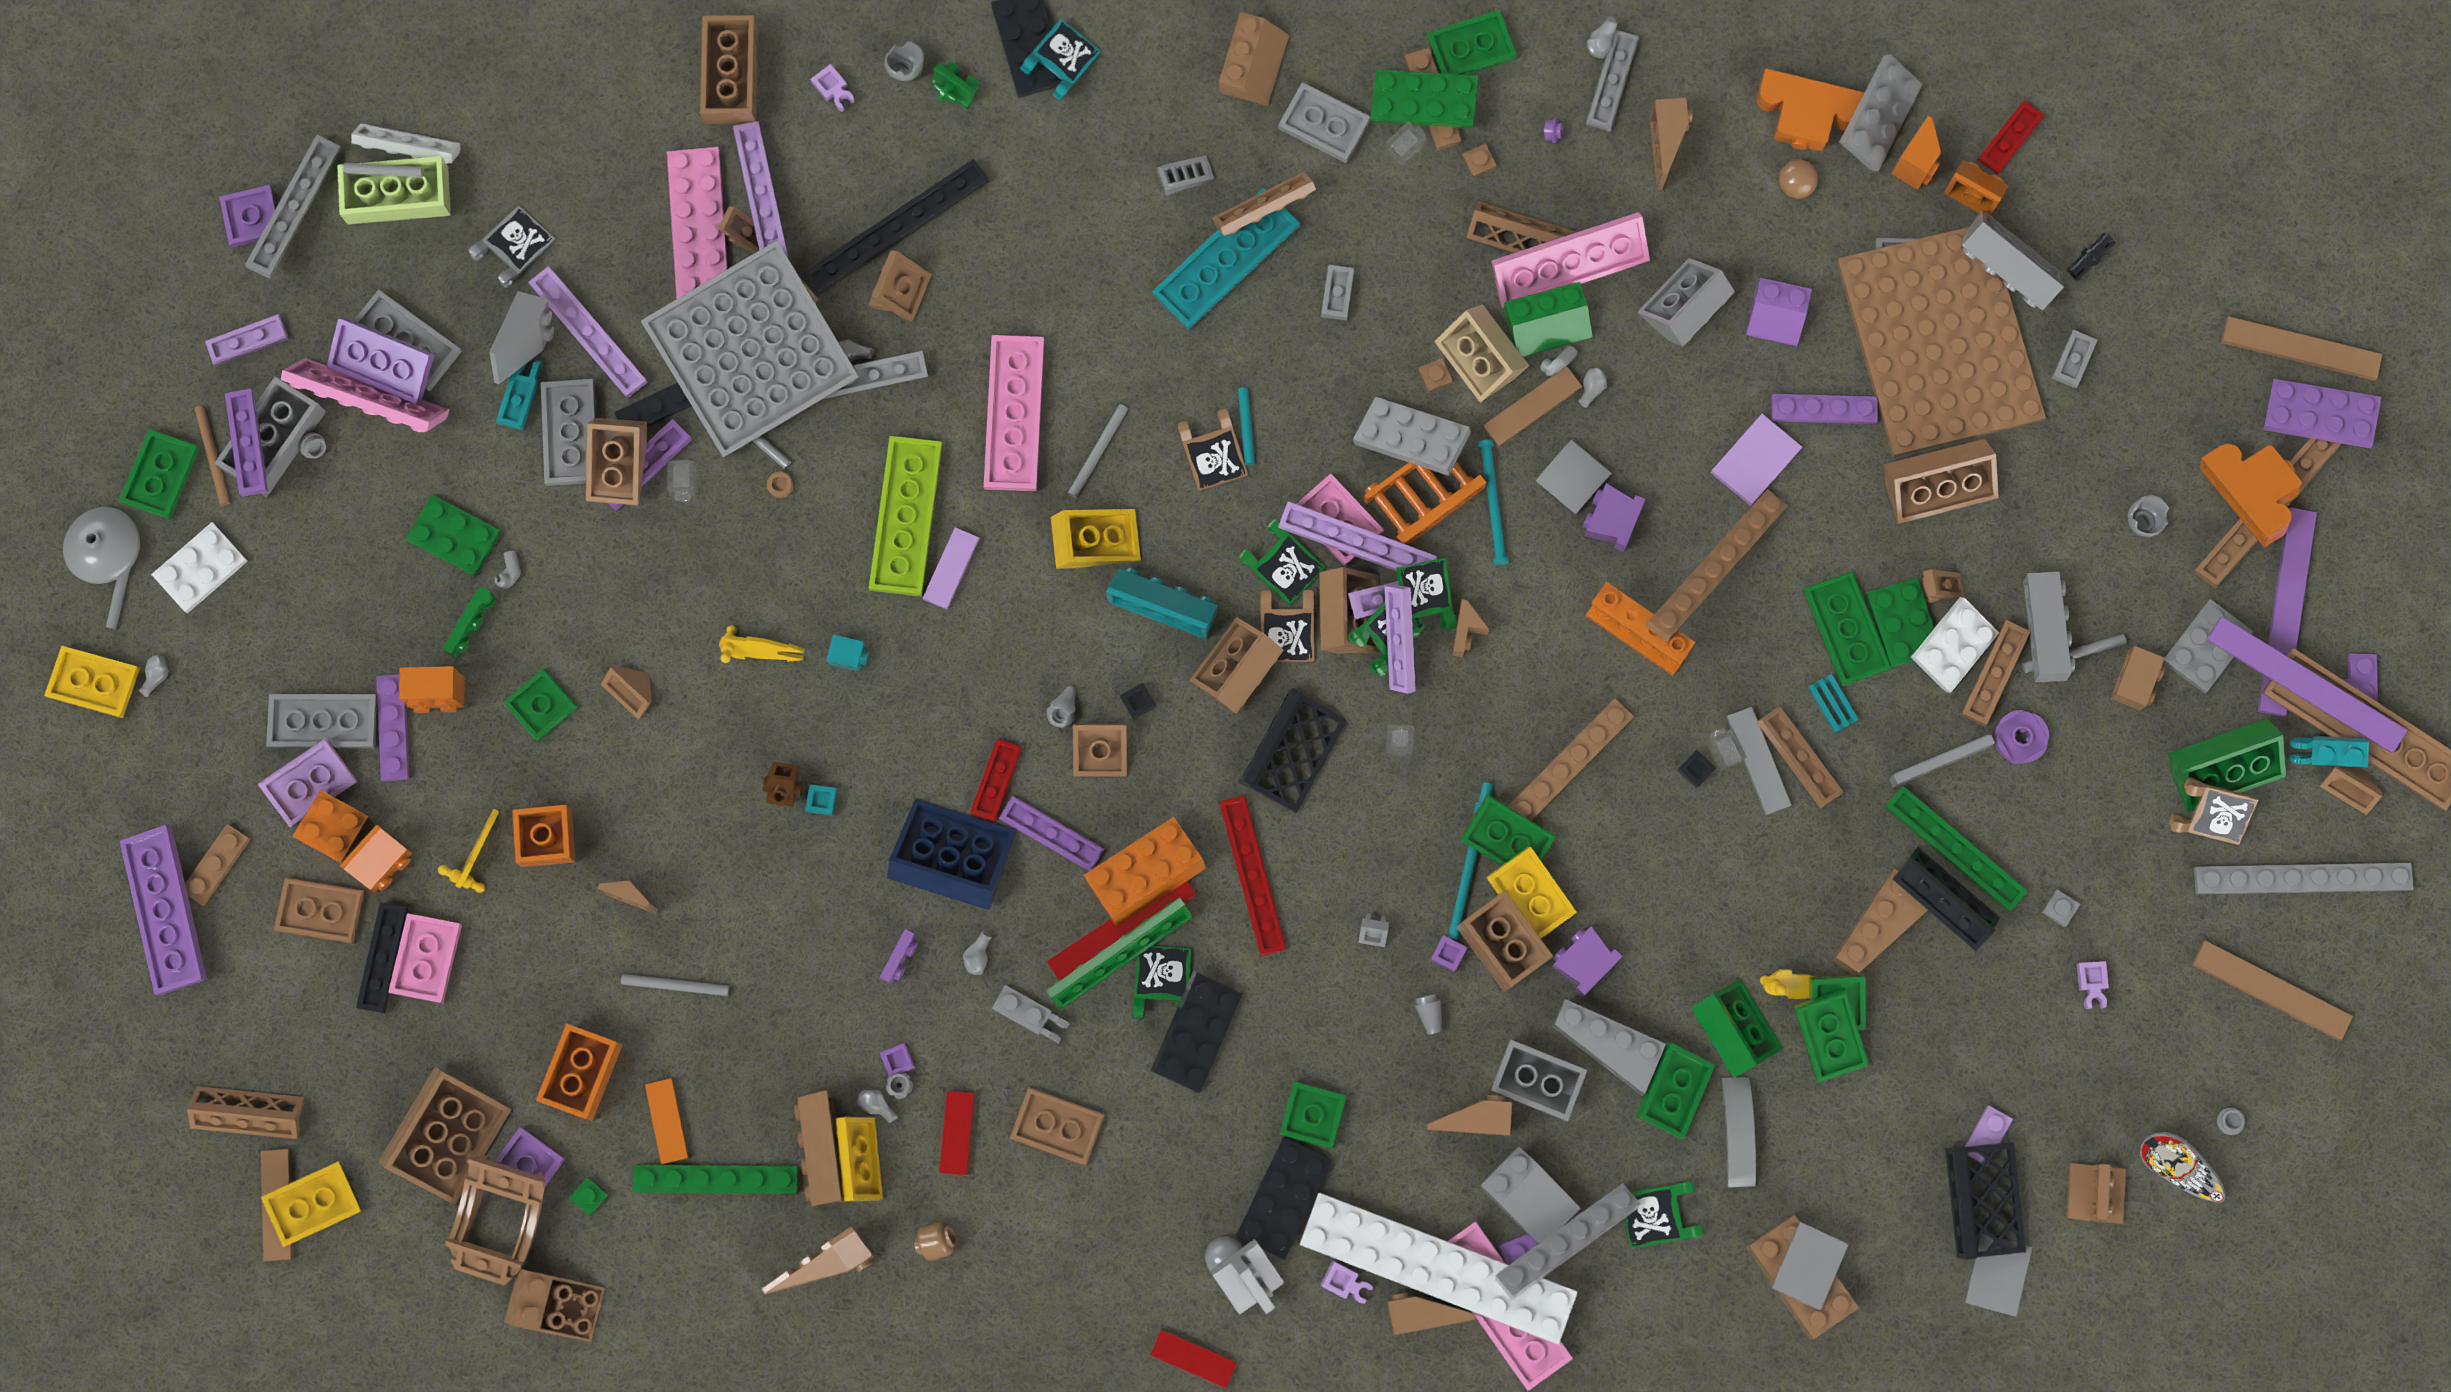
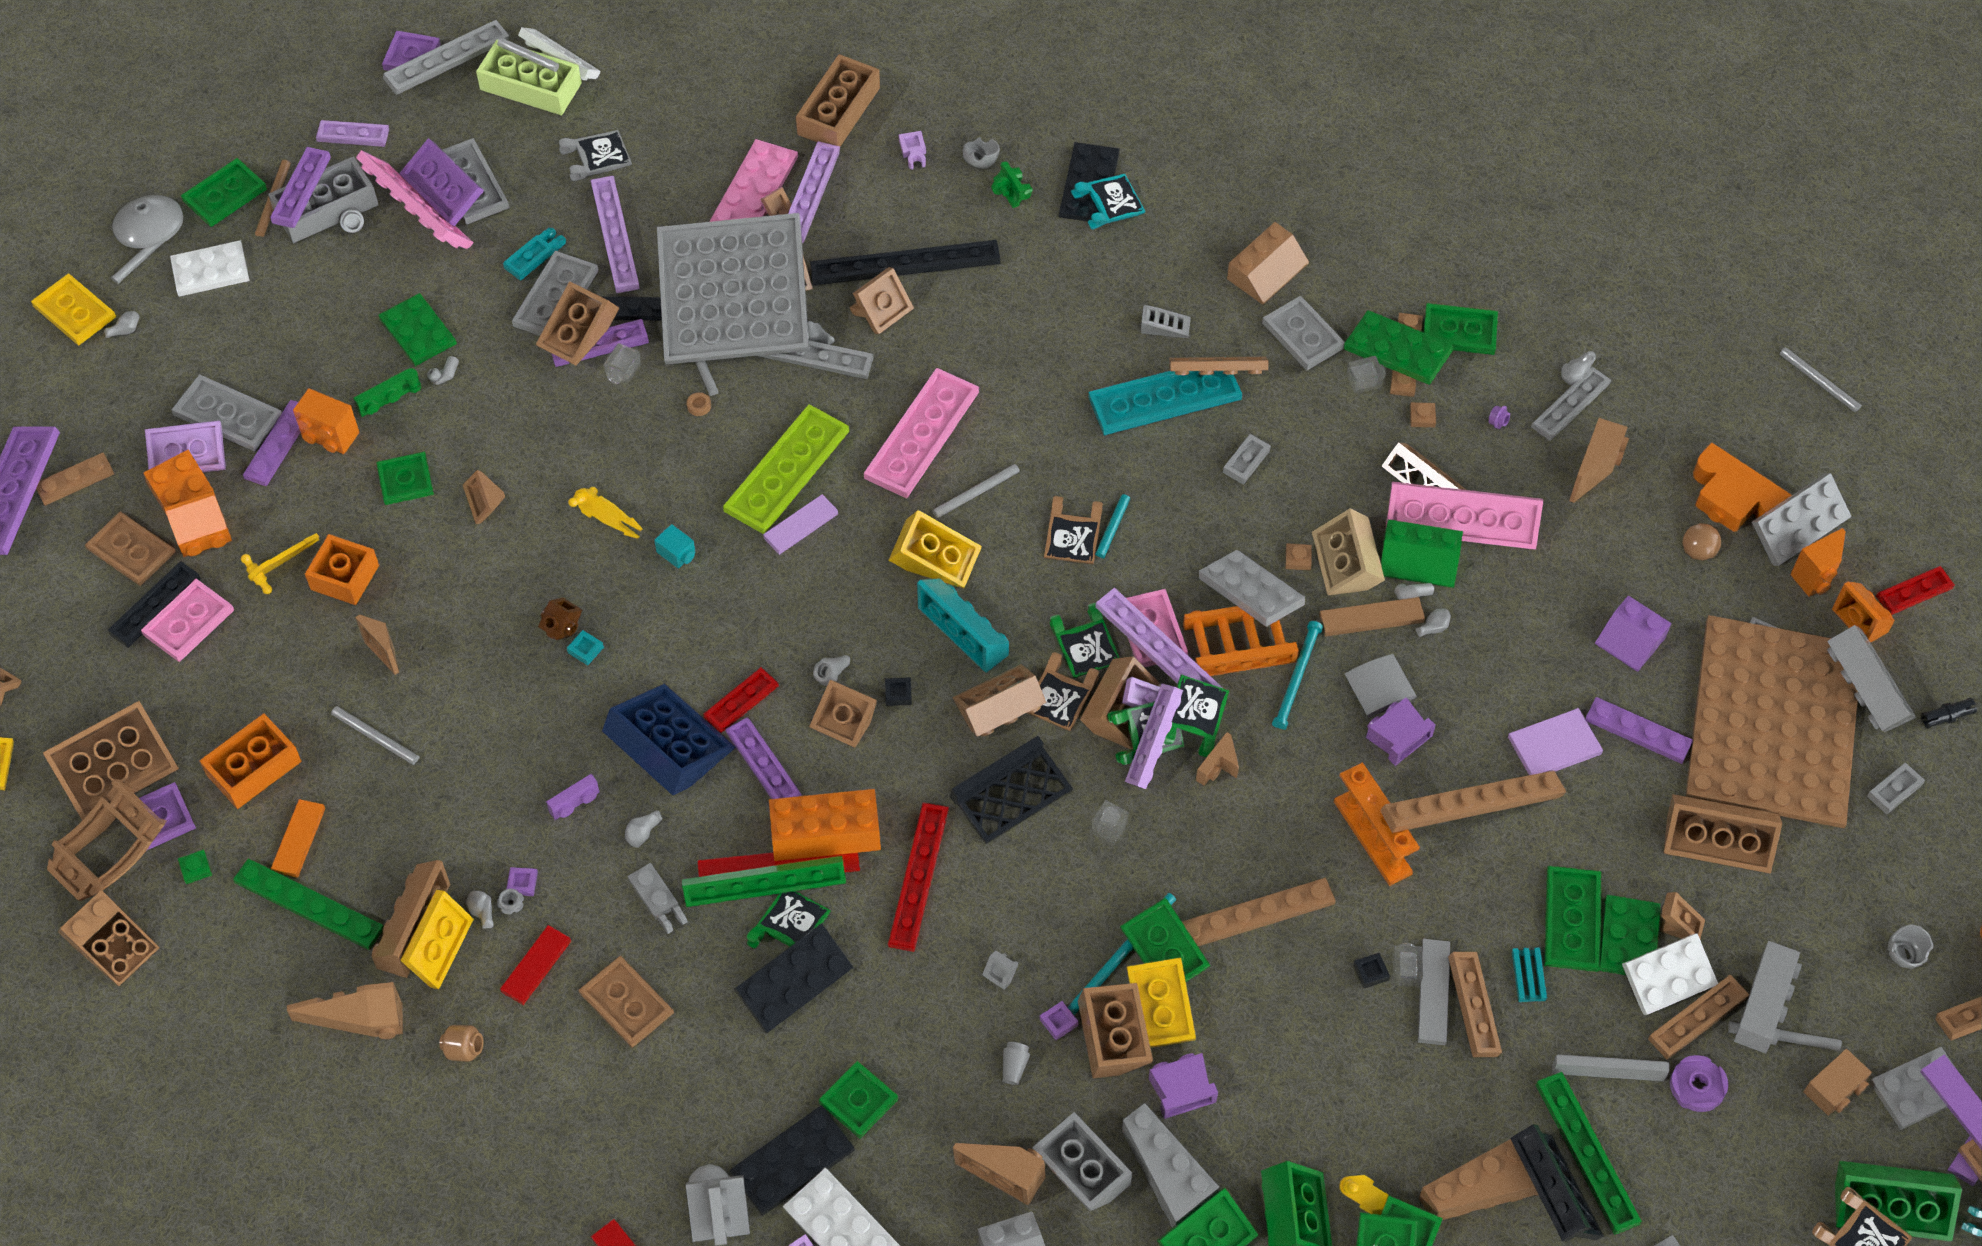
camera: 25 degrees right, 20 degrees down
(521, 335) = (557, 206): light grey slope -> none
(1687, 301) = (1554, 592): light grey slope -> none

